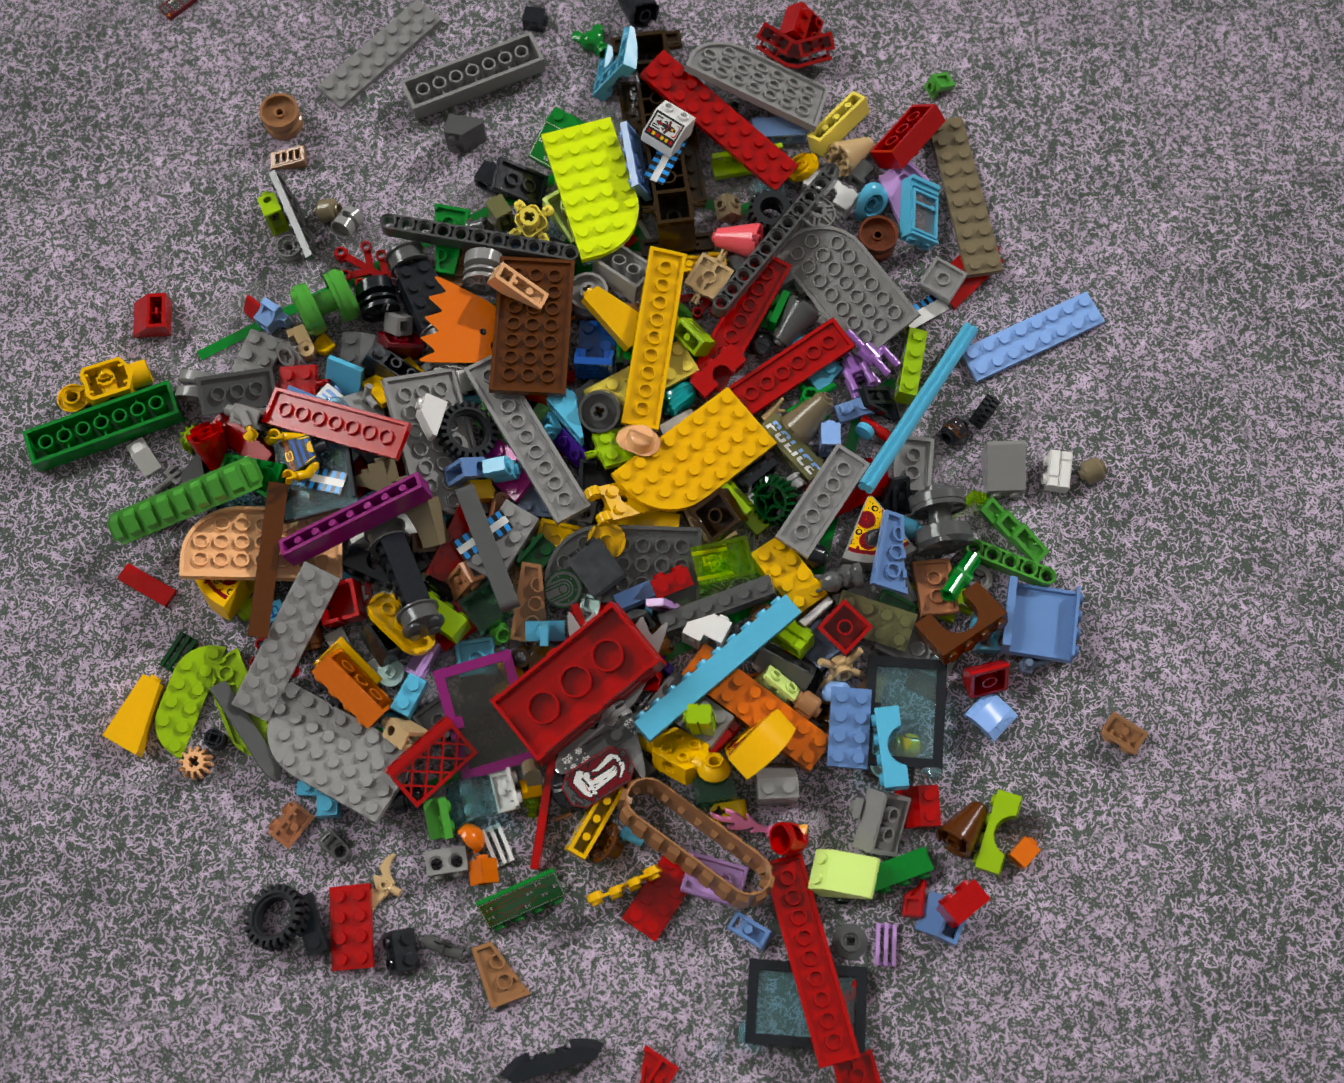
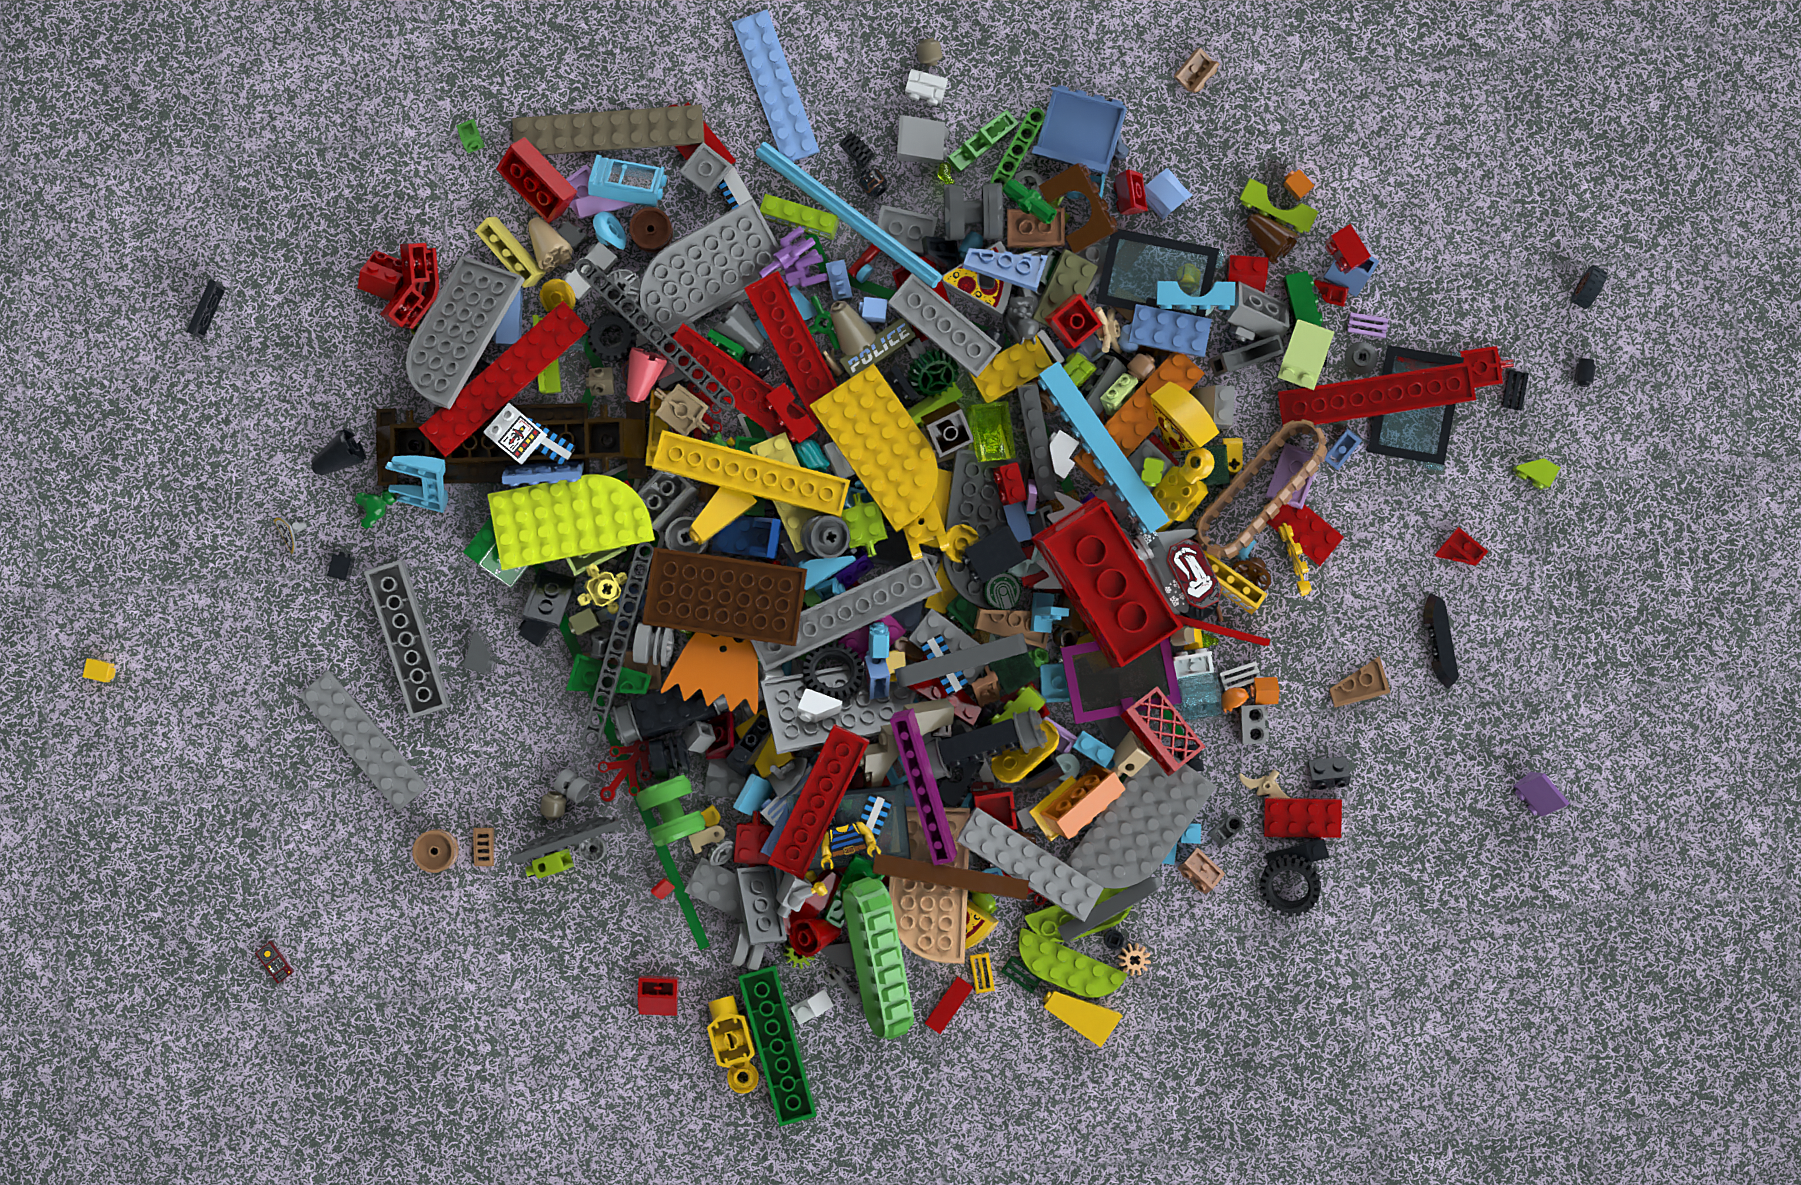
camera: 85 degrees left, 15 degrees up
(196, 610) = (979, 957): none -> yellow tile
(271, 316) = (674, 868): light blue brick -> none
(438, 819) = (1213, 729): bright green bracket -> none
(442, 947) = (1329, 734): dark grey pin -> none
(516, 286) = (684, 608): light nougat slope -> none
(521, 899) = (1296, 656): green slope -> none
(638, 440) = (862, 501): light nougat piece -> none
(693, 337) = (751, 433): lime brick -> none
(740, 823) = (1245, 447): bright pink piece -> none
(788, 838) = (1265, 402): red piece -> none
(834, 814) = (1246, 356): none -> dark grey arch
(880, 401) = (836, 253): black wing -> none

